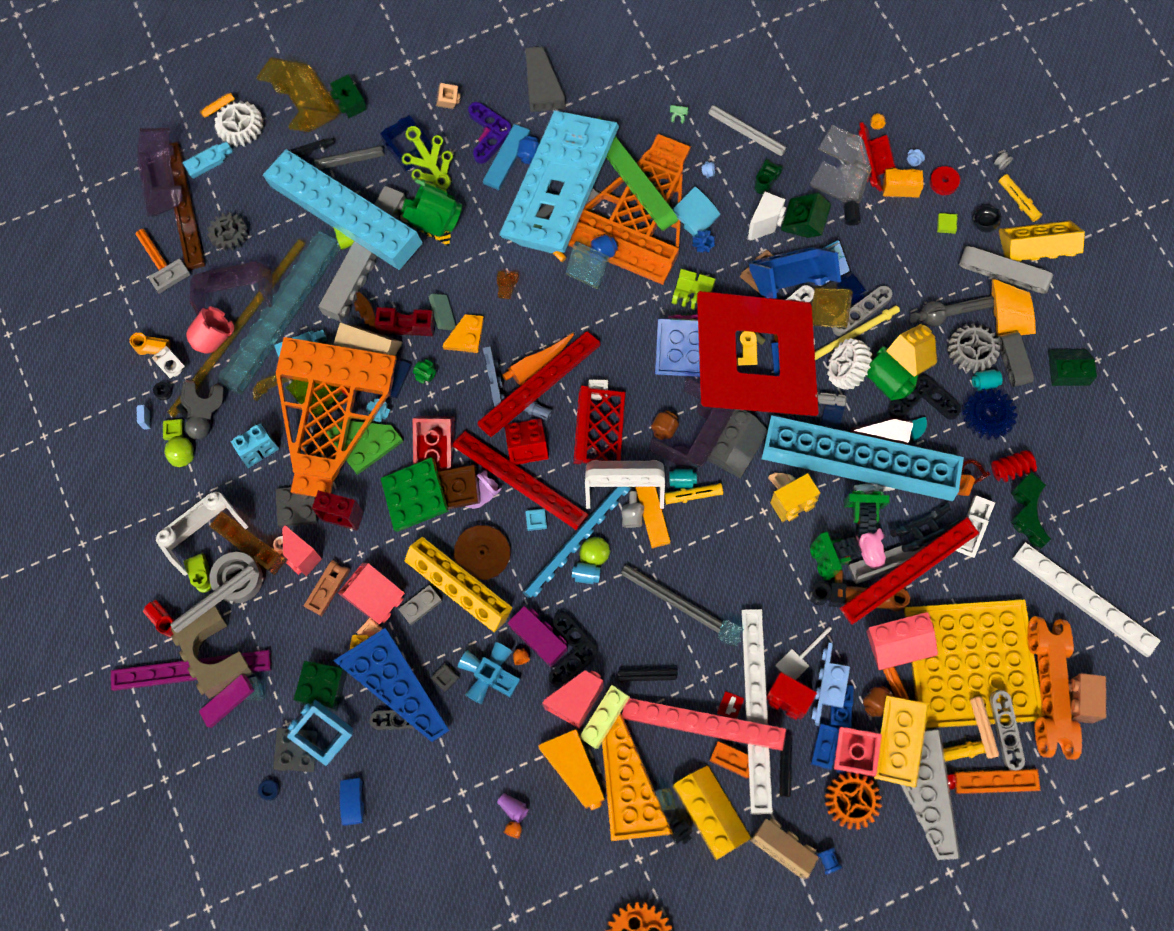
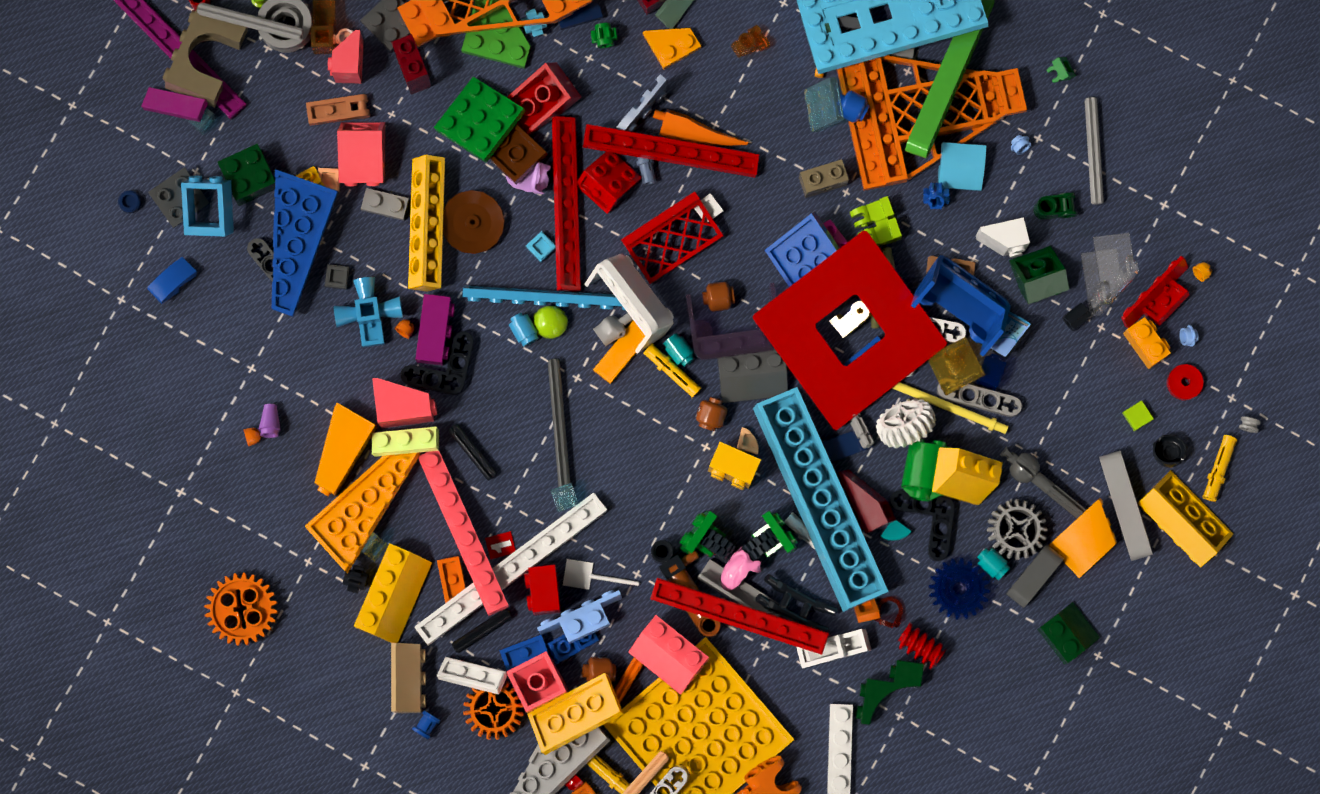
camera: 45 degrees right, 10 degrees up
(636, 301) = (823, 178): none -> dark tan brick
(744, 488) = (711, 414): none -> dark orange head
(817, 797) = (472, 675): none -> white tile

